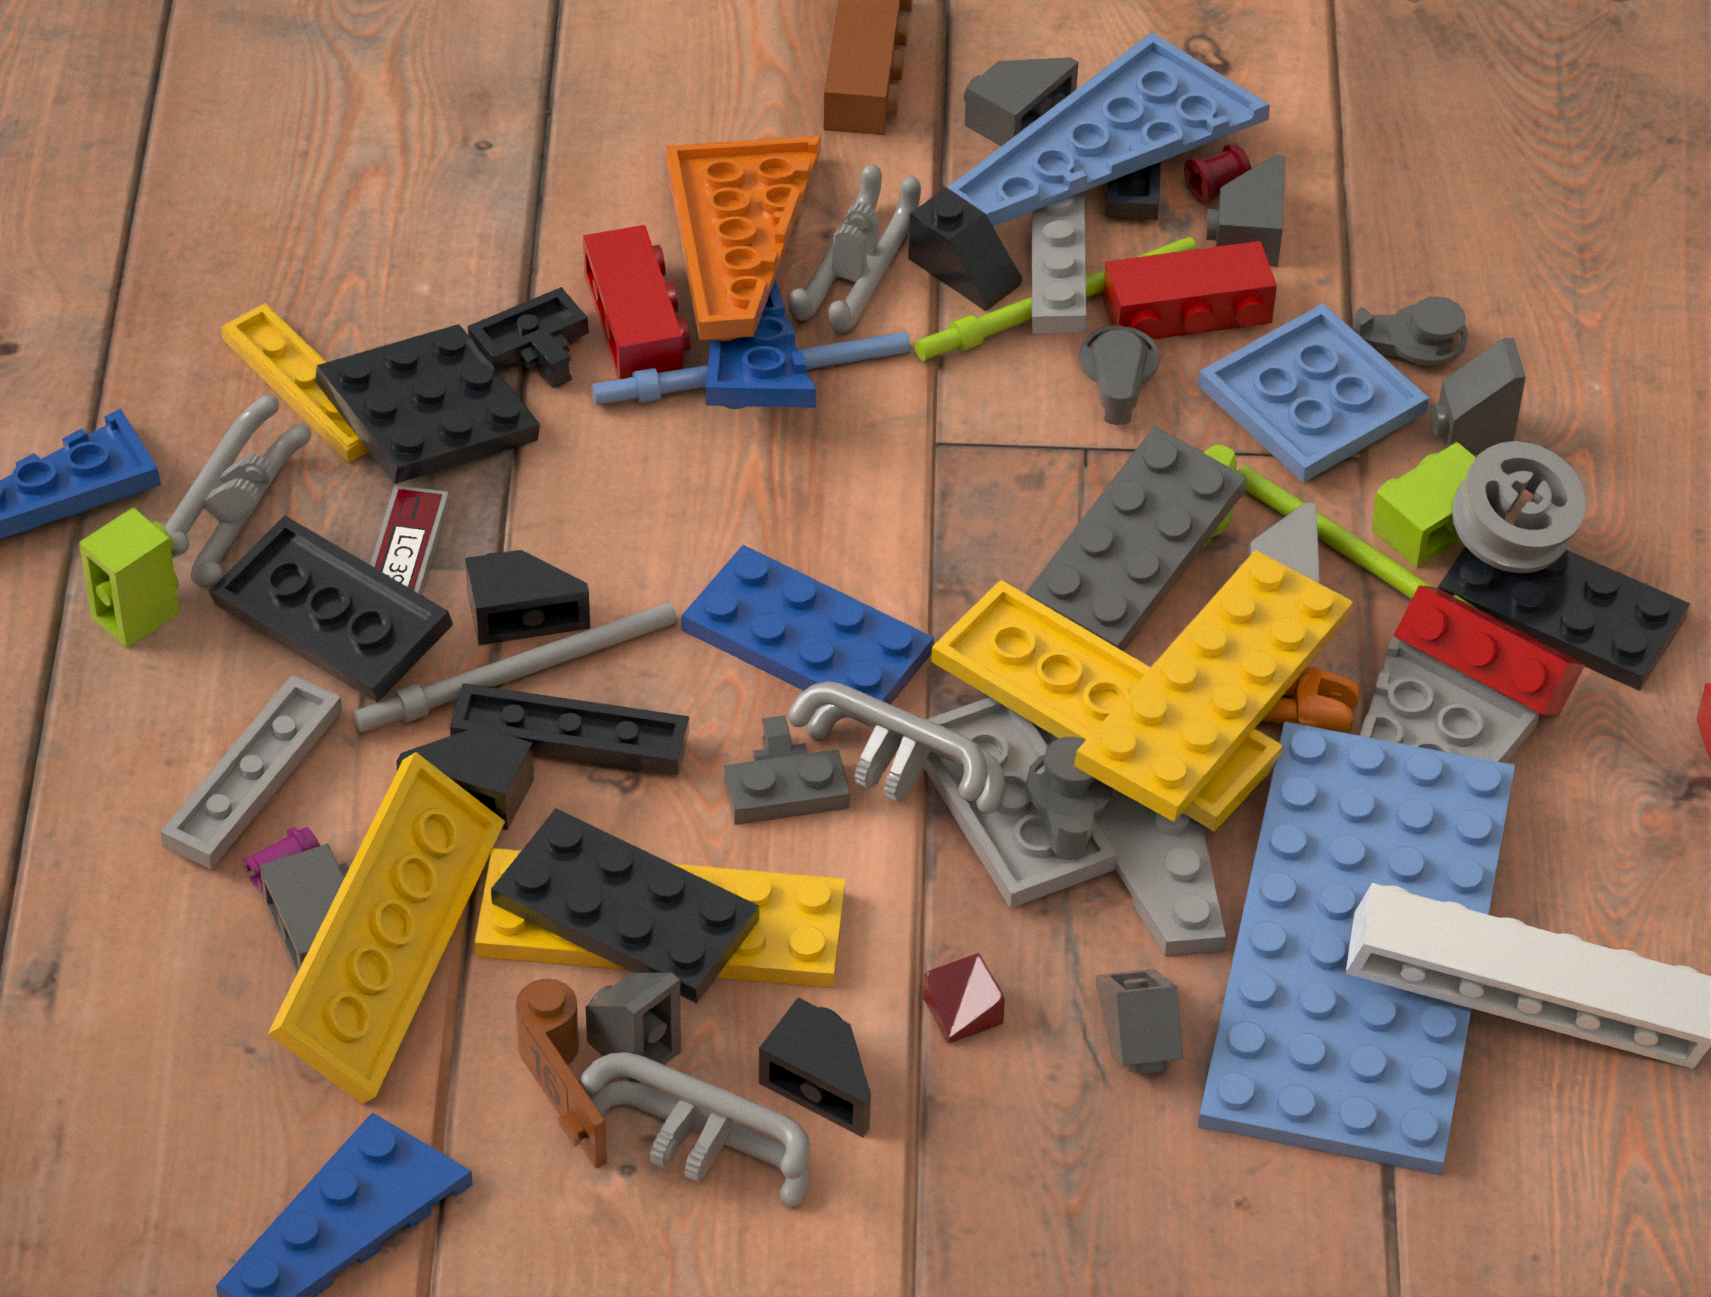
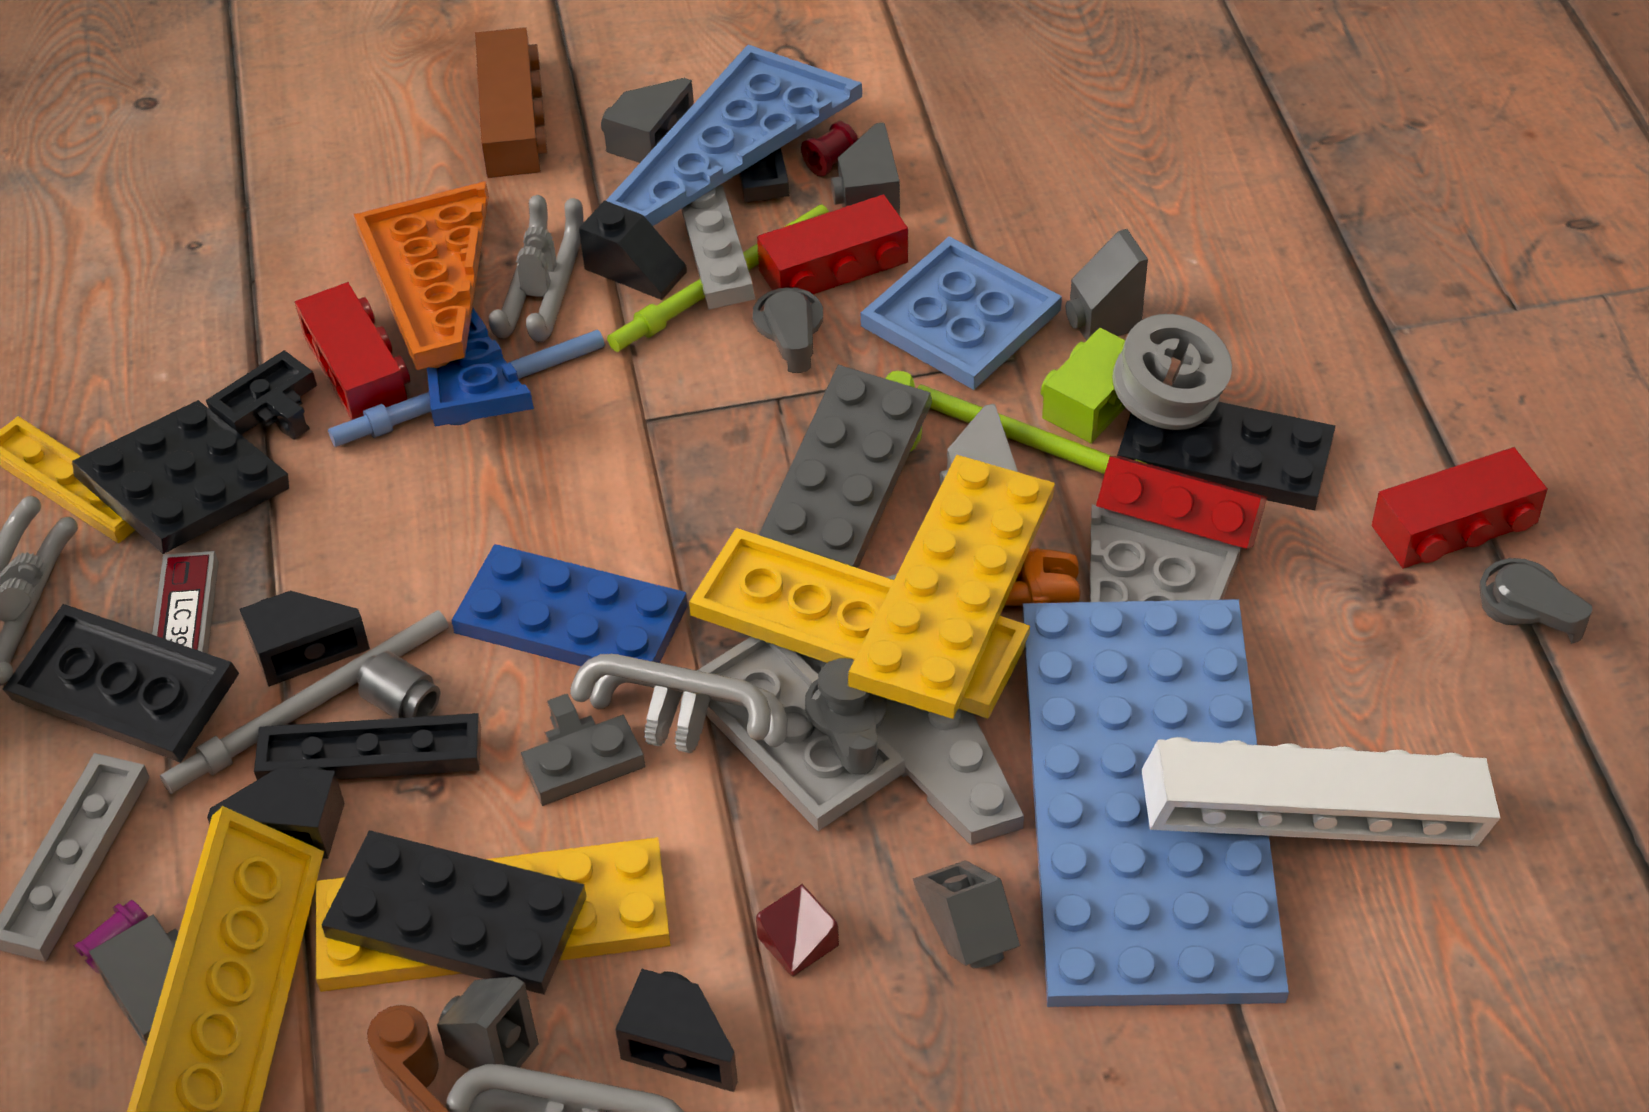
camera: 10 degrees left, 0 degrees up
(611, 672) = (397, 686): none -> flat silver brick
(1417, 332) = (1034, 244): dark grey piece -> none

